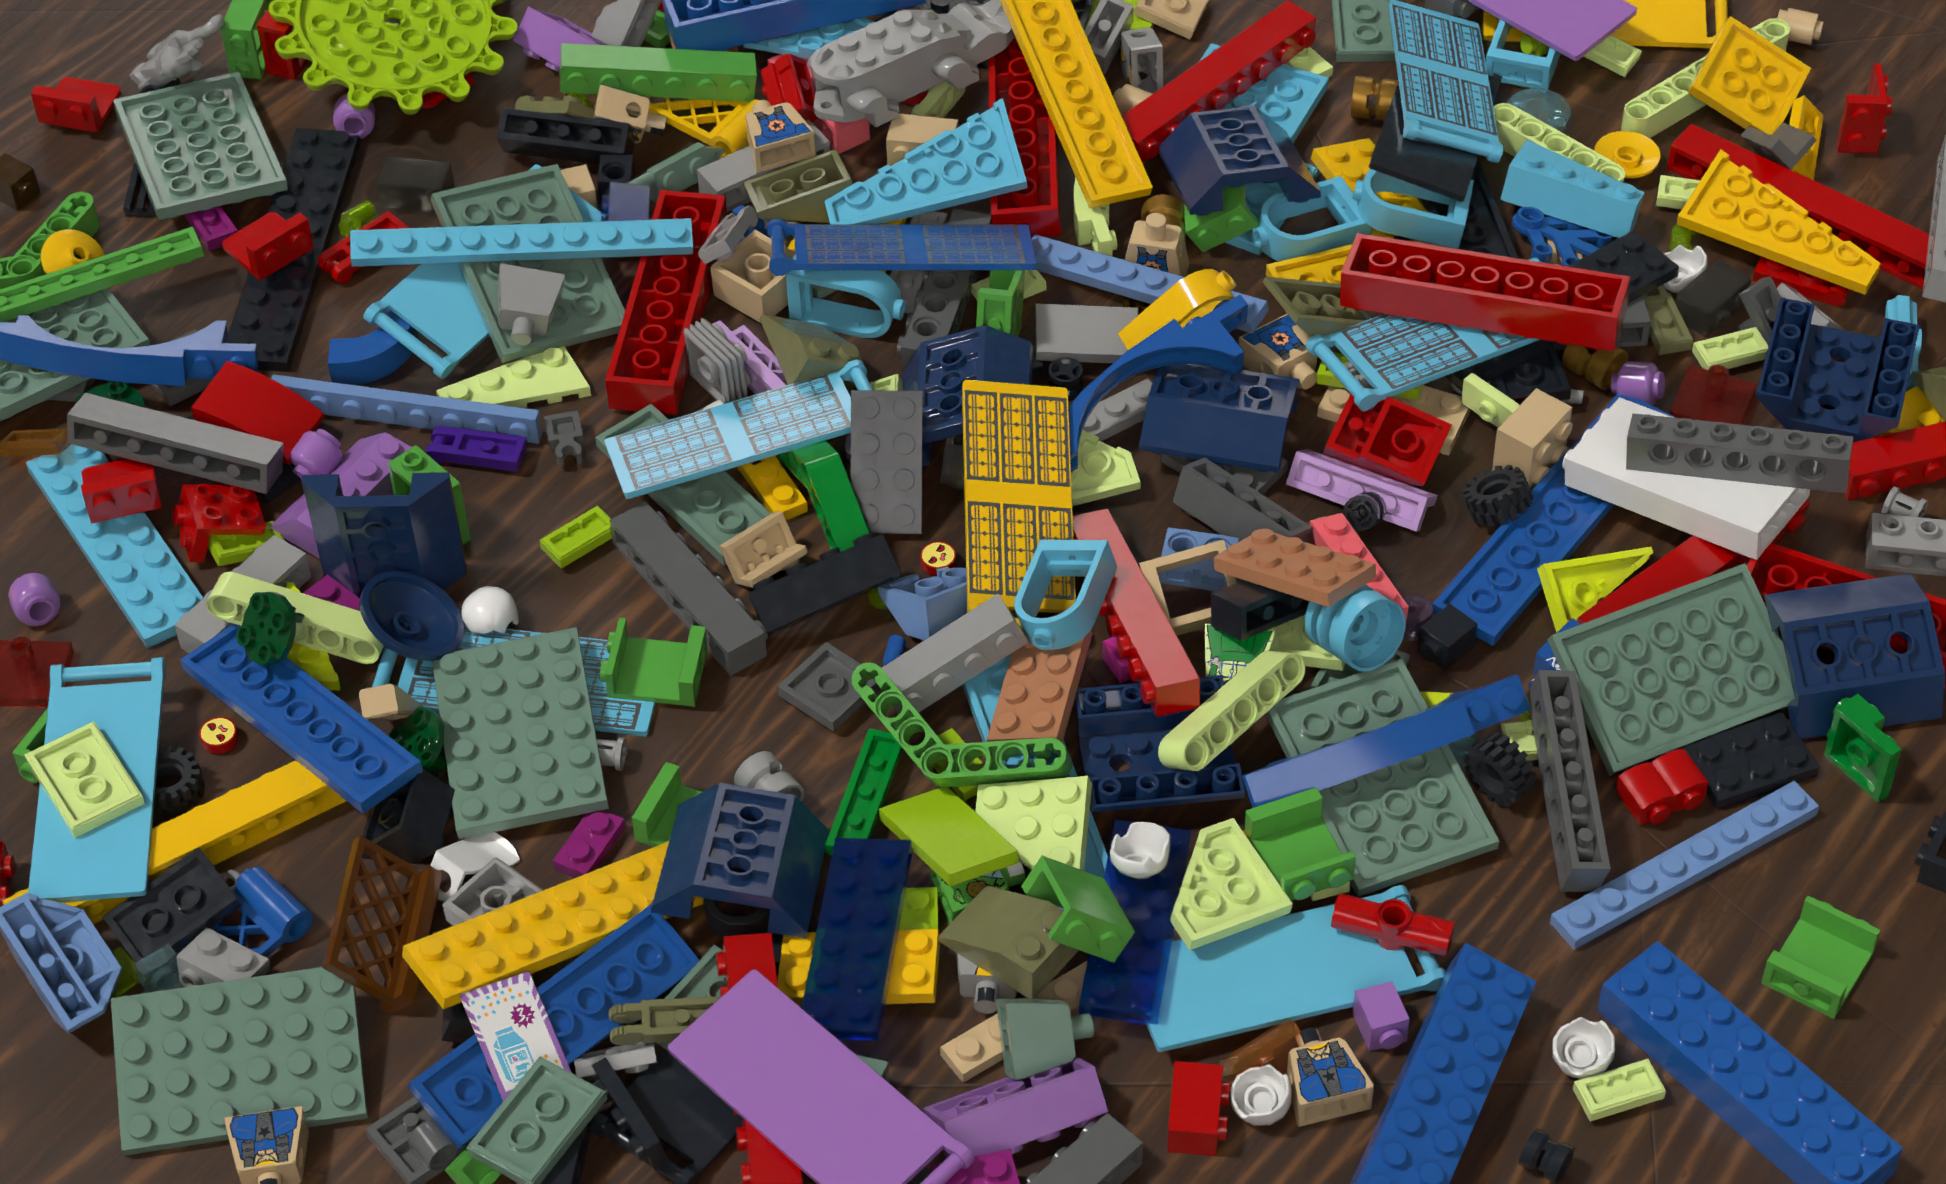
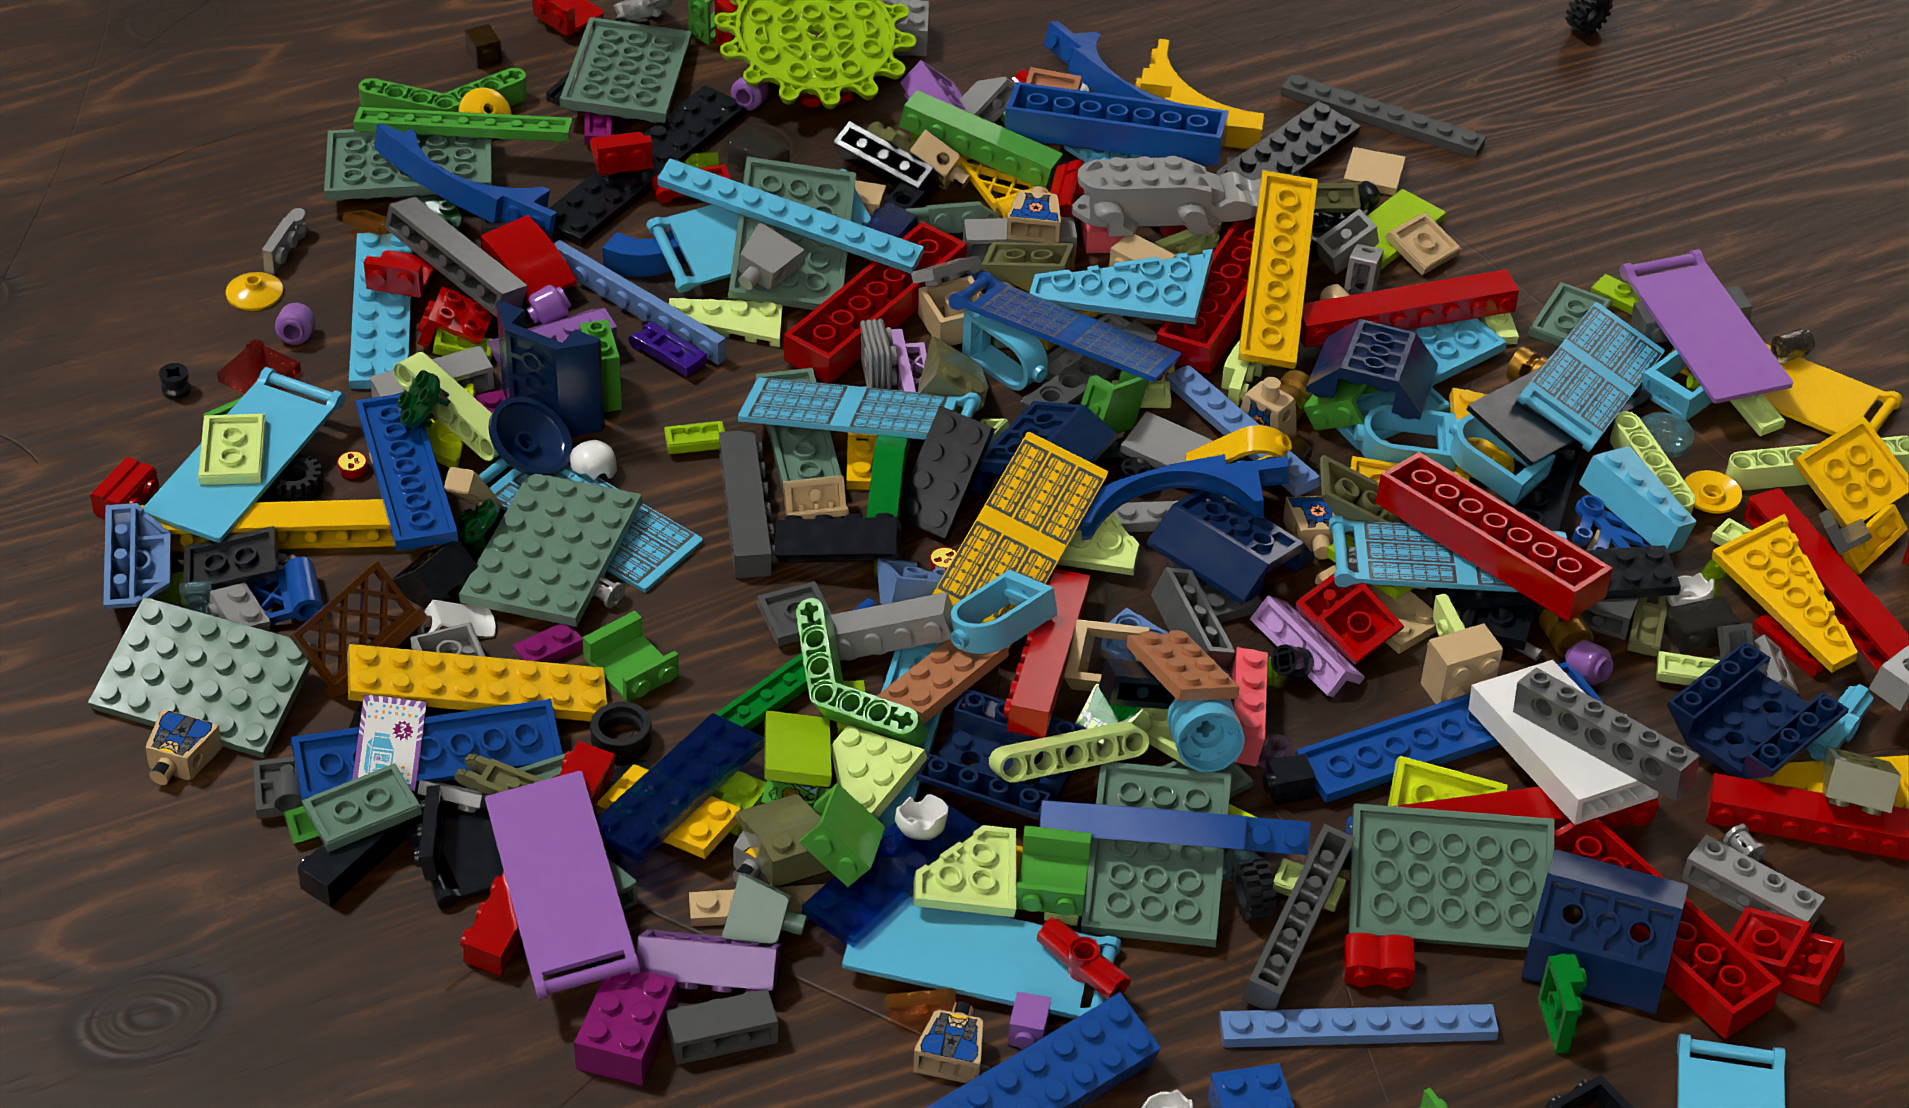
camera: 25 degrees right, 5 degrees down
(565, 435) = (736, 363): dark grey plate -> none
(654, 668) = (680, 547): bright green panel -> none
(767, 773) = (698, 661): light grey wheel -> none
(778, 853) = (656, 706): dark blue slope -> none
(1196, 1108) = (840, 1020): red brick -> none
(1261, 1095) = (895, 1033): white hair -> none
(1498, 495) = (1407, 694): black tyre -> none
(1713, 396) = (1642, 698): clear red tile -> none
(1752, 760) = (1469, 975): black plate -> none

